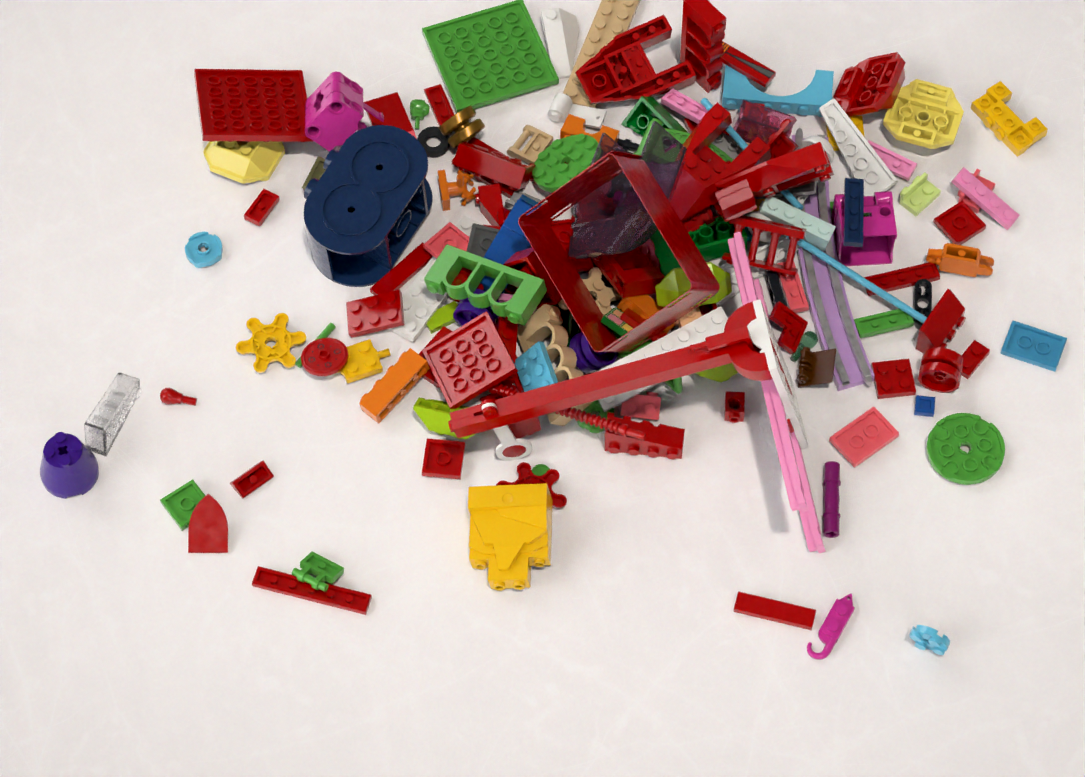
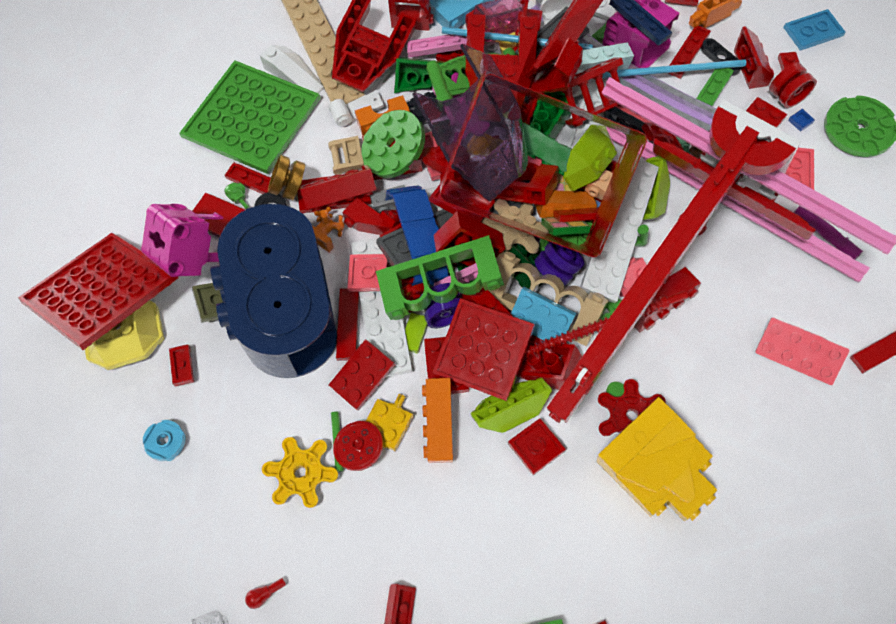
camera: 40 degrees left, 5 degrees up
(704, 555) = (802, 351): none -> coral bracket

